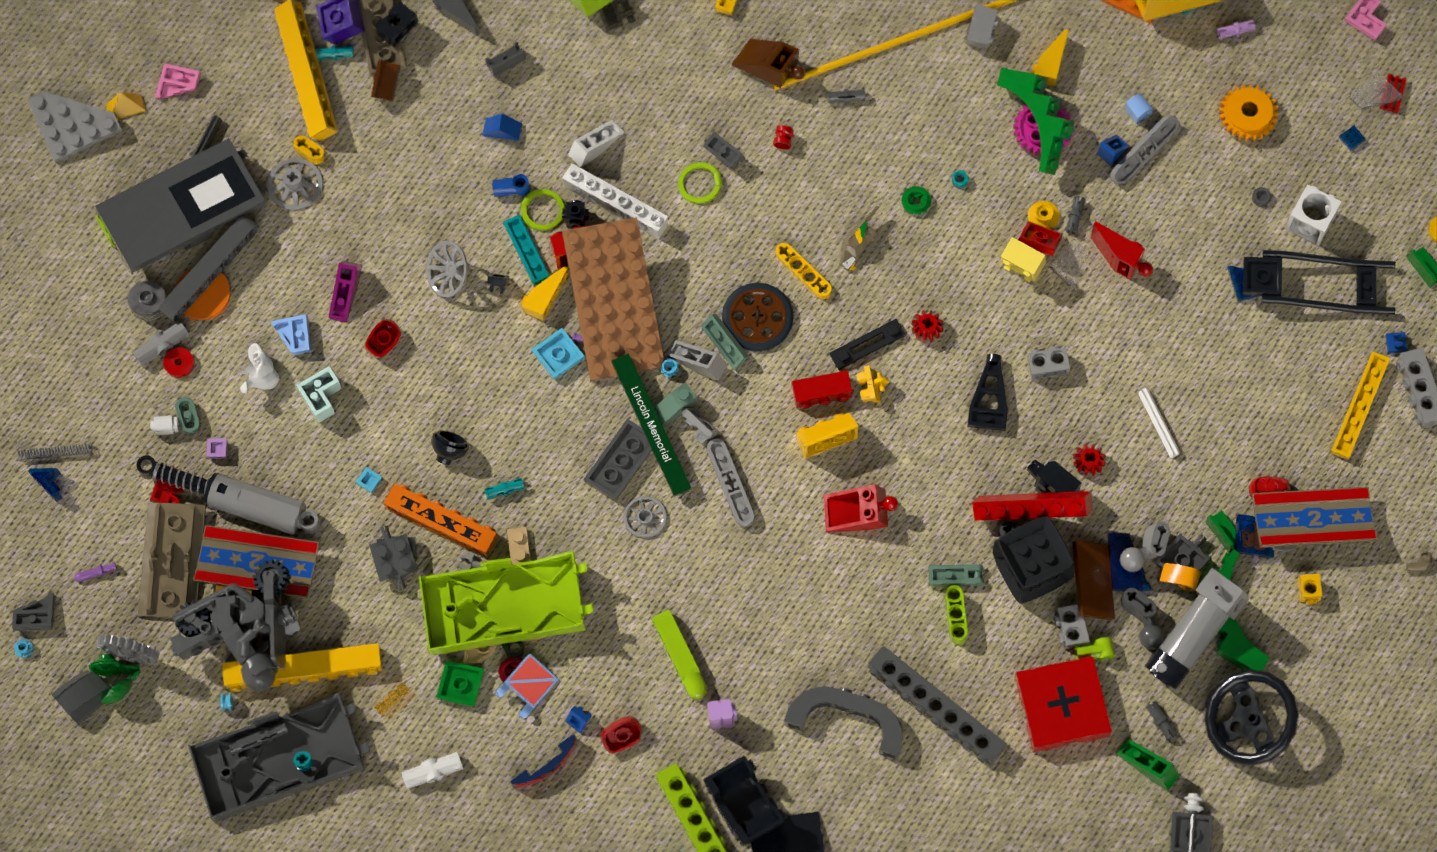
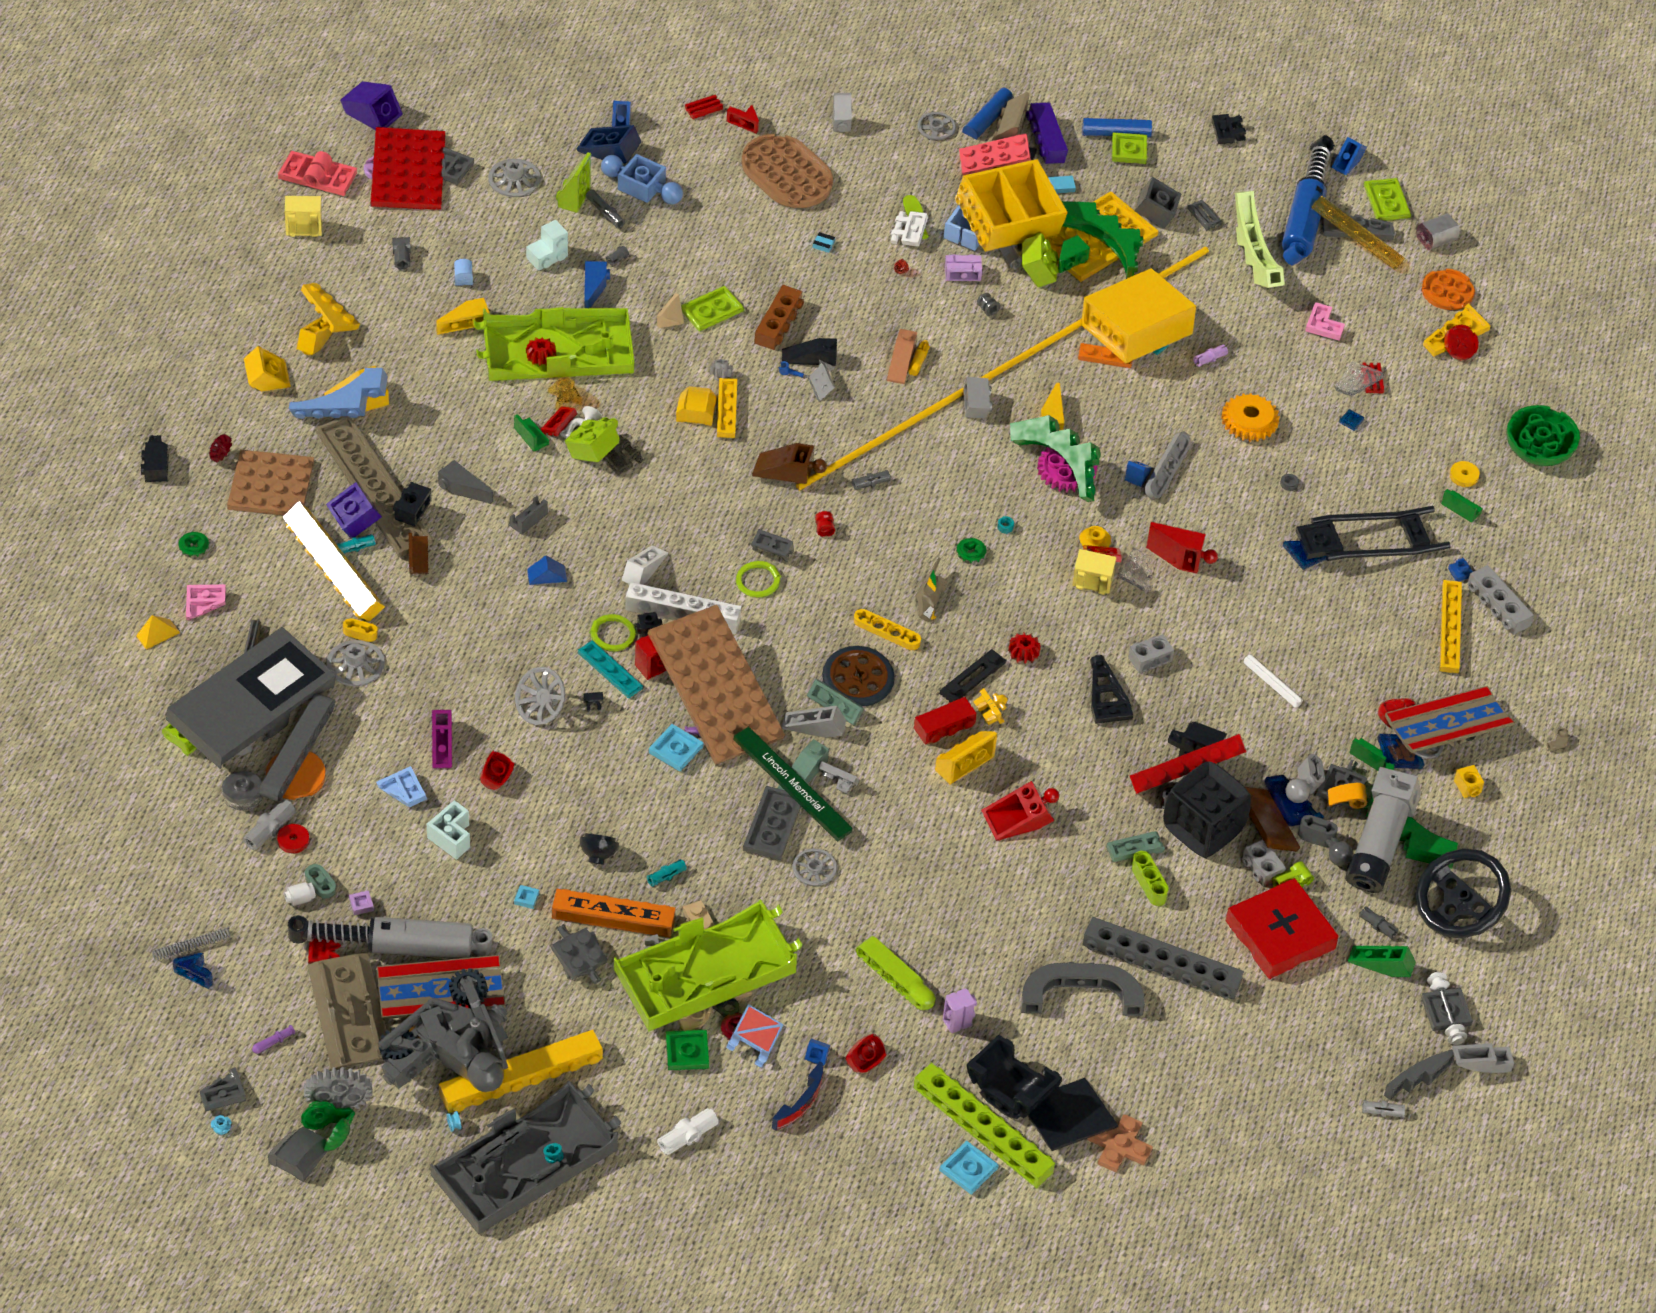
camera: 25 degrees left, 20 degrees down
(71, 124) = (107, 658): light grey plate -> none
(189, 9) = (193, 537): none -> green gear
(260, 370) = (380, 822): white piece -> none
(392, 698) = (622, 1080): clear yellow axle -> none
(508, 186) = (582, 615): blue piece -> none
(543, 295) = (642, 701): yellow slope -> none
(669, 363) = (790, 731): medium azure plate -> none
(736, 499) = (878, 809): light grey piece -> none
(1075, 215) = (1125, 531): dark grey pin -> none
(1090, 466) = (1223, 721): red gear -> none
(1138, 108) = (1148, 433): light blue piece -> none
(1308, 228) = (1344, 482): white brick -> none

